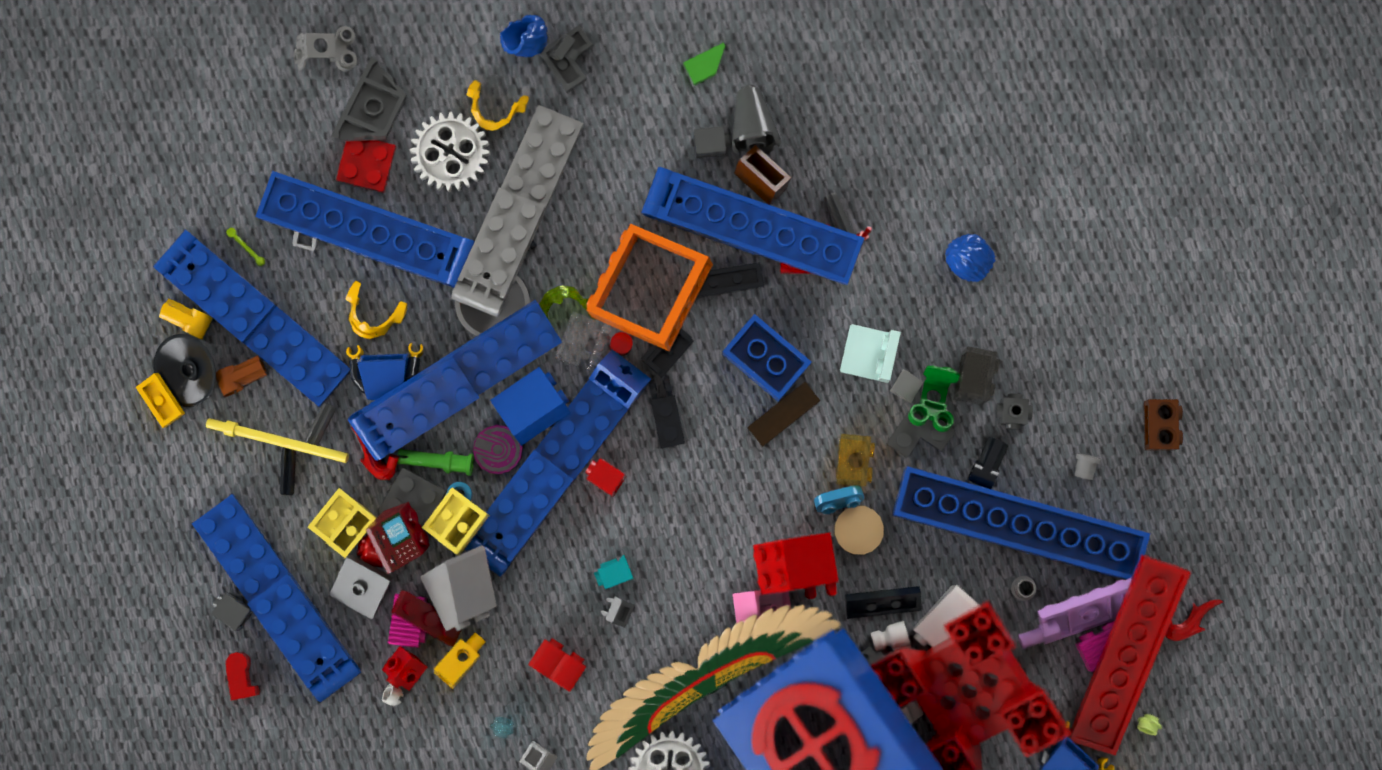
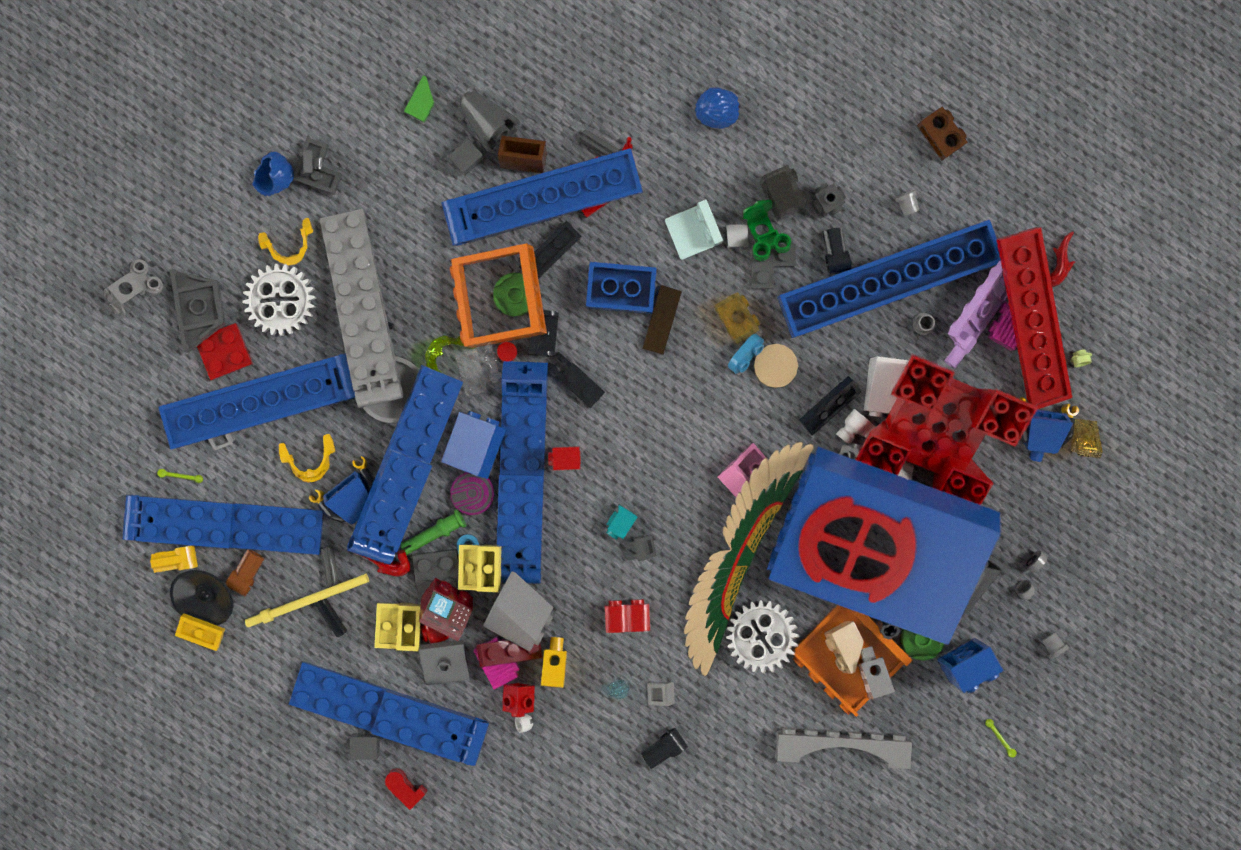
camera: 40 degrees left, 5 degrees up
(660, 304) = (510, 295): none -> bright green tile
(797, 565) = (750, 423): red container -> none

